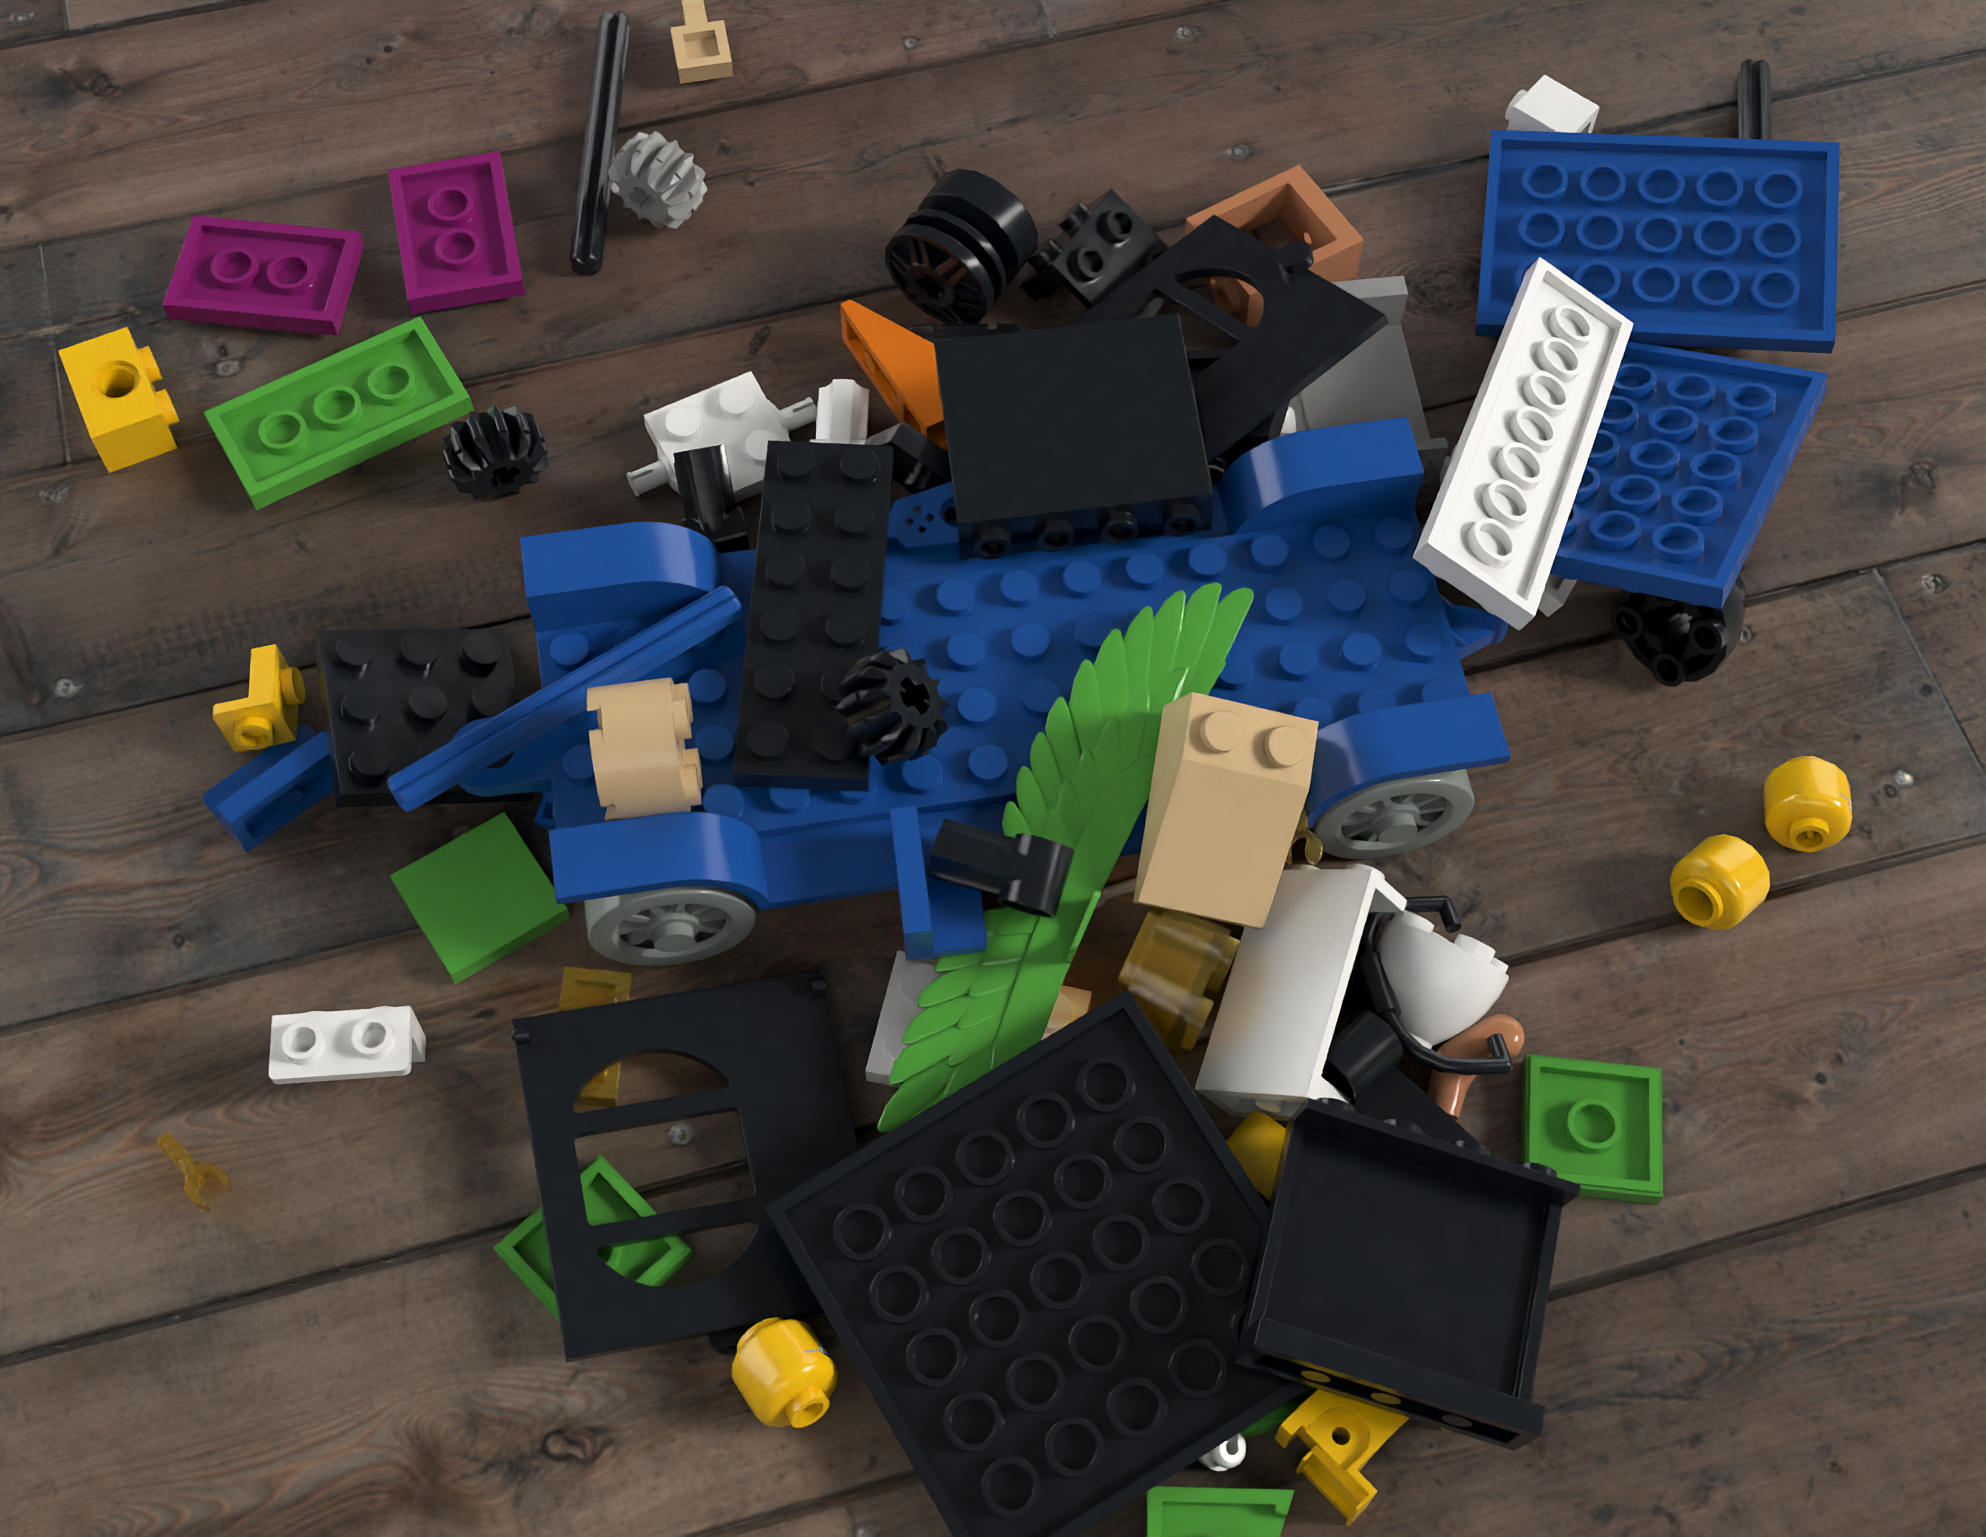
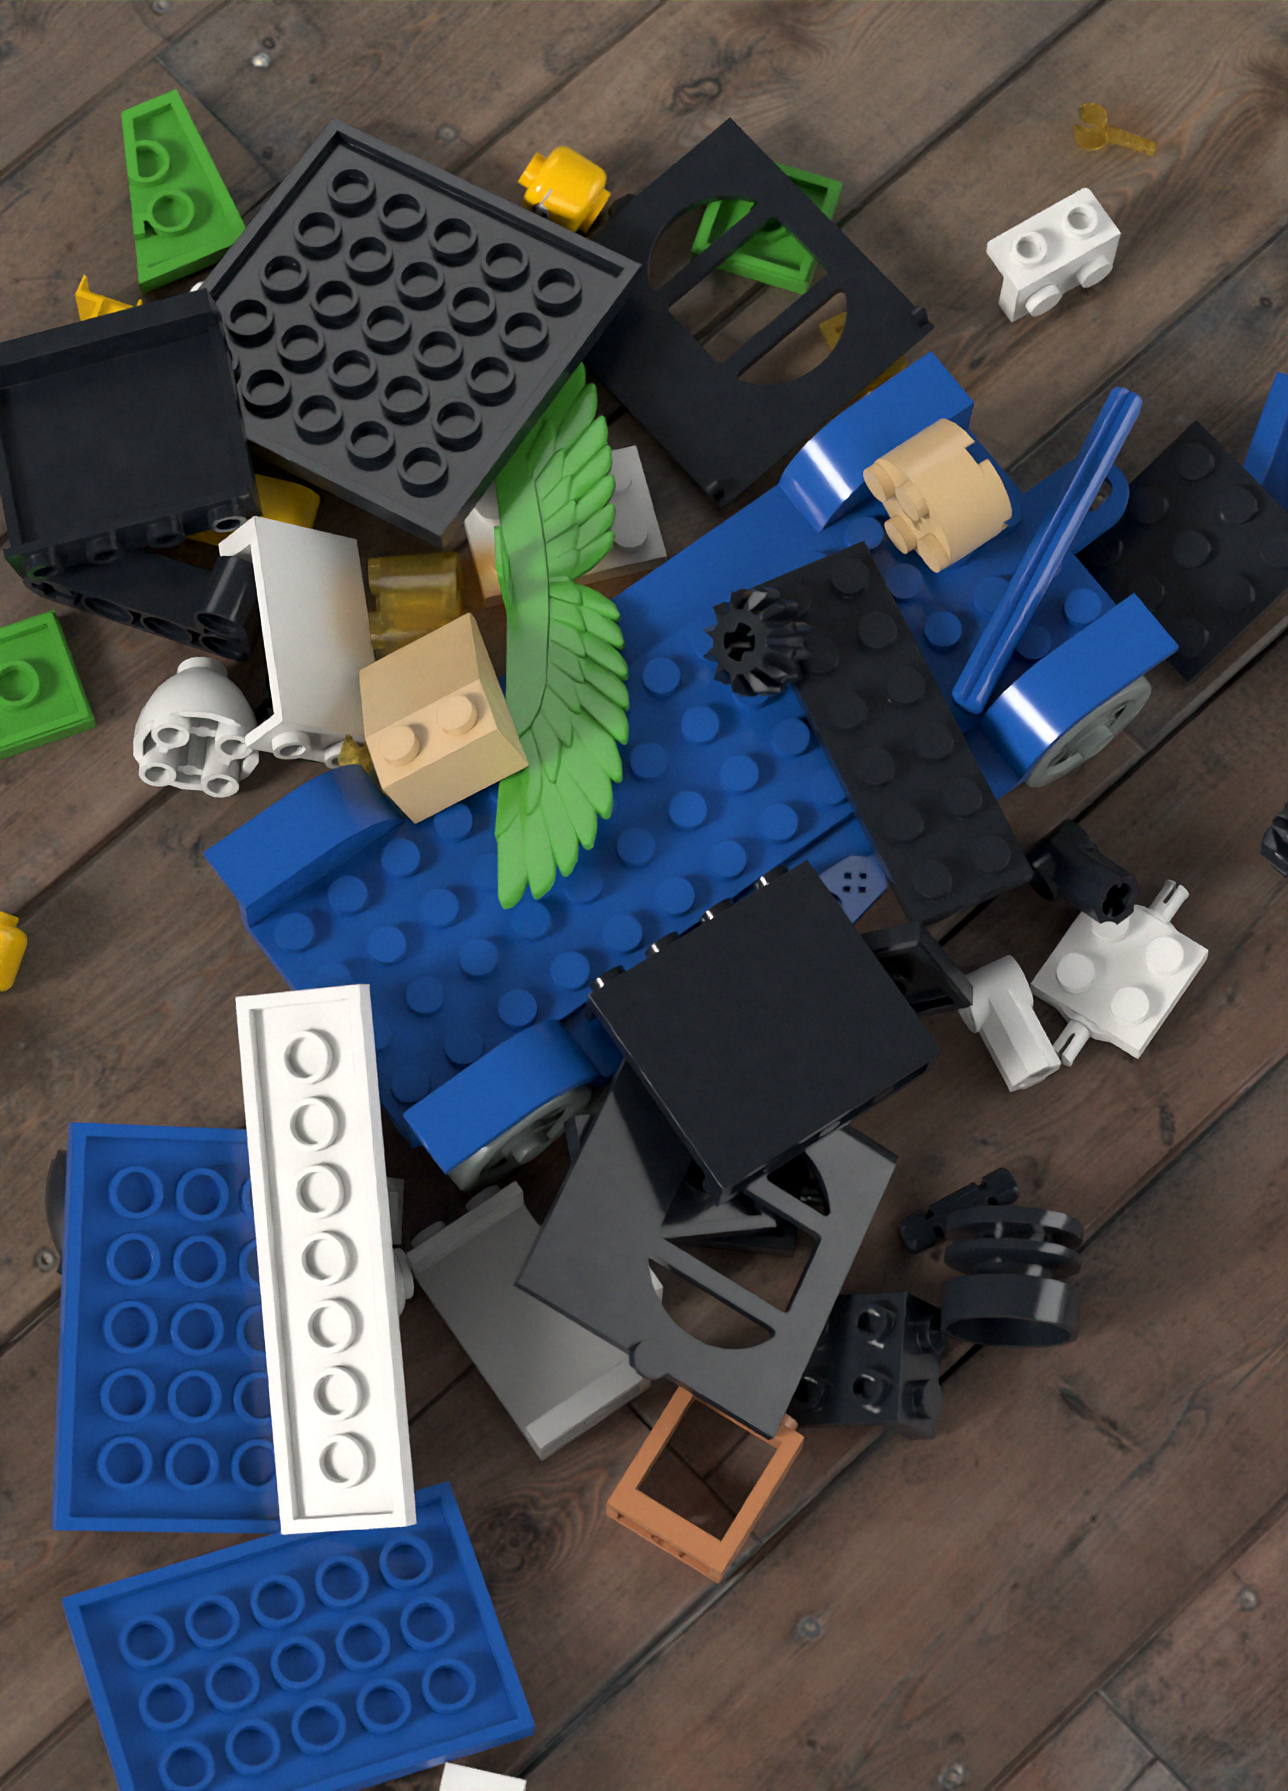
camera: 150 degrees right, 10 degrees up
(479, 897) = (1036, 426): bright green tile -> none
(898, 366) = (970, 1123): orange slope -> none
(934, 914) = (646, 549): blue panel -> none
(1019, 871) = (576, 578): black piece -> none
(1385, 1004) = (228, 668): black piece -> none
(1450, 1089) = (149, 671): nougat arm -> none

